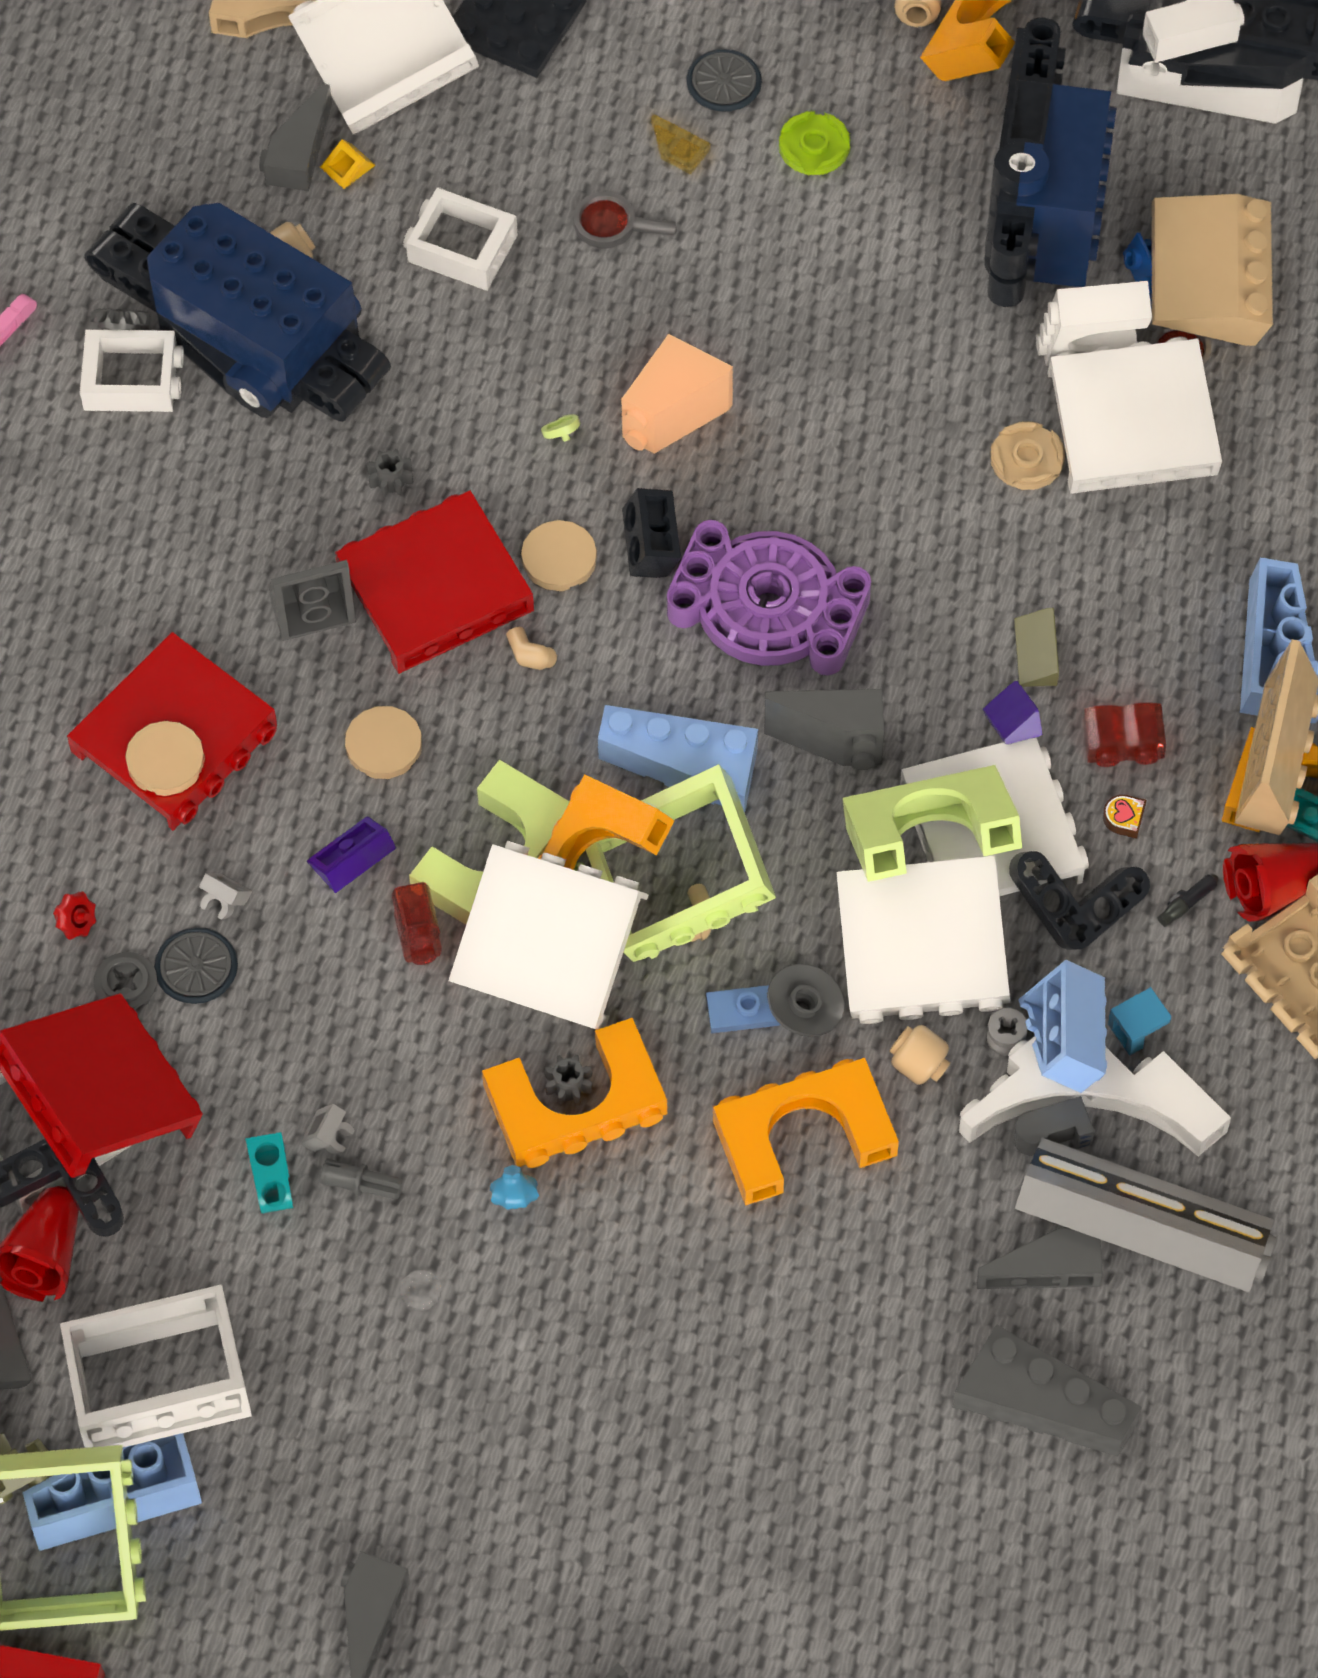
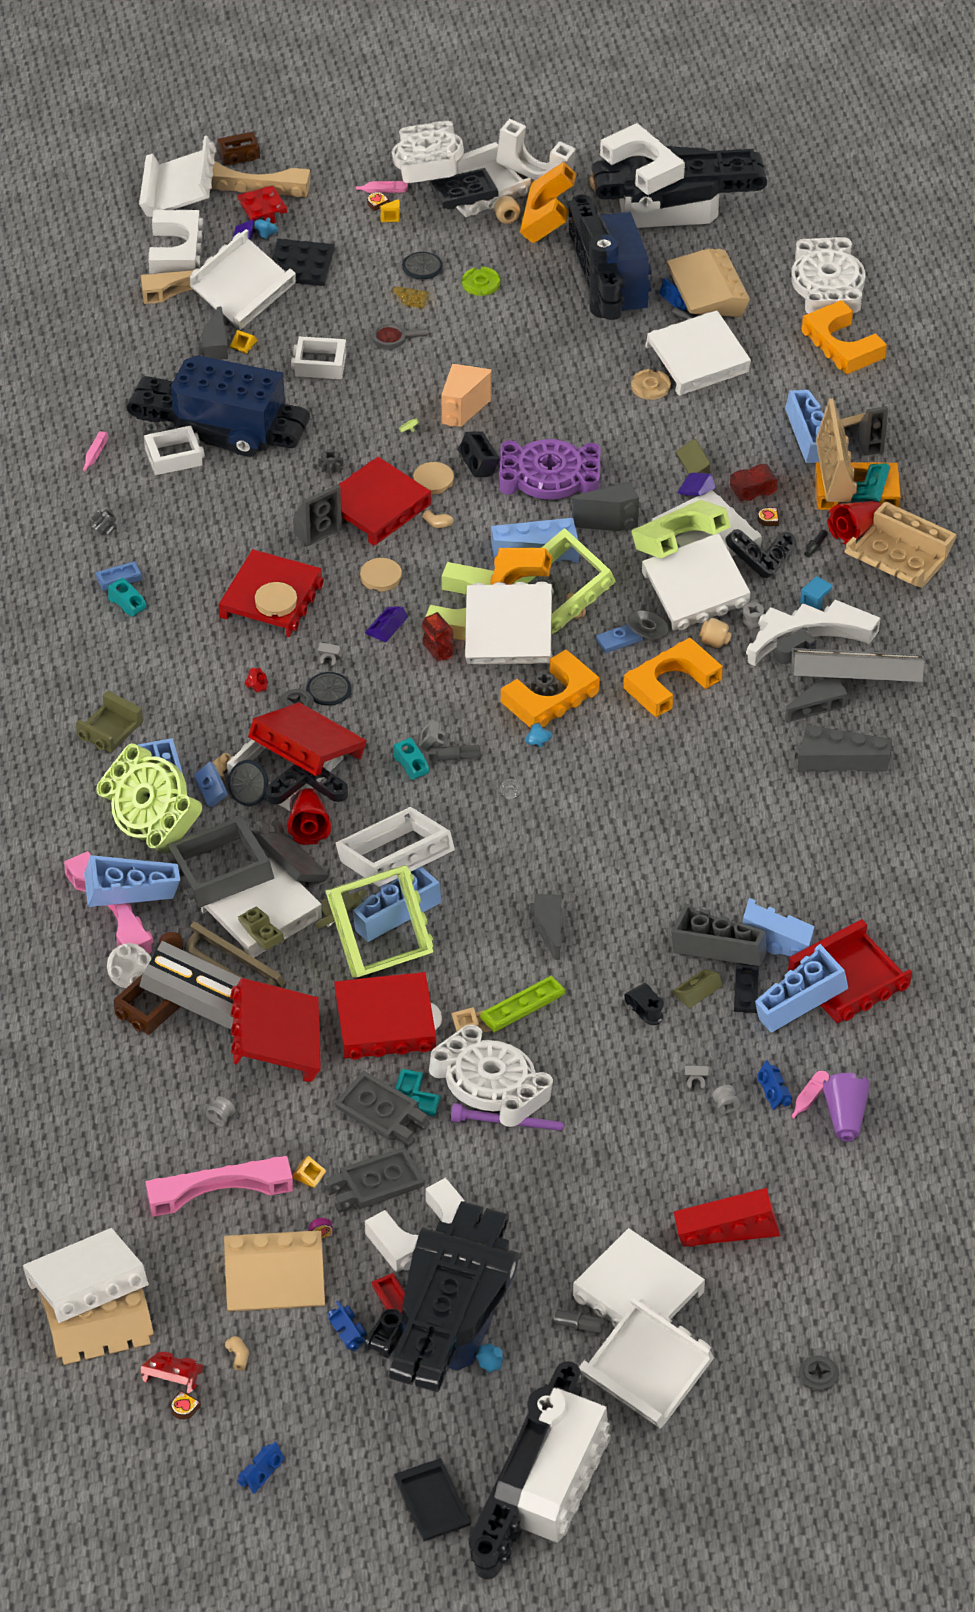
camera: 20 degrees left, 15 degrees down
(1068, 1025) = (785, 594): light blue wedge -> none
(1094, 318) = (657, 304): white arch -> none

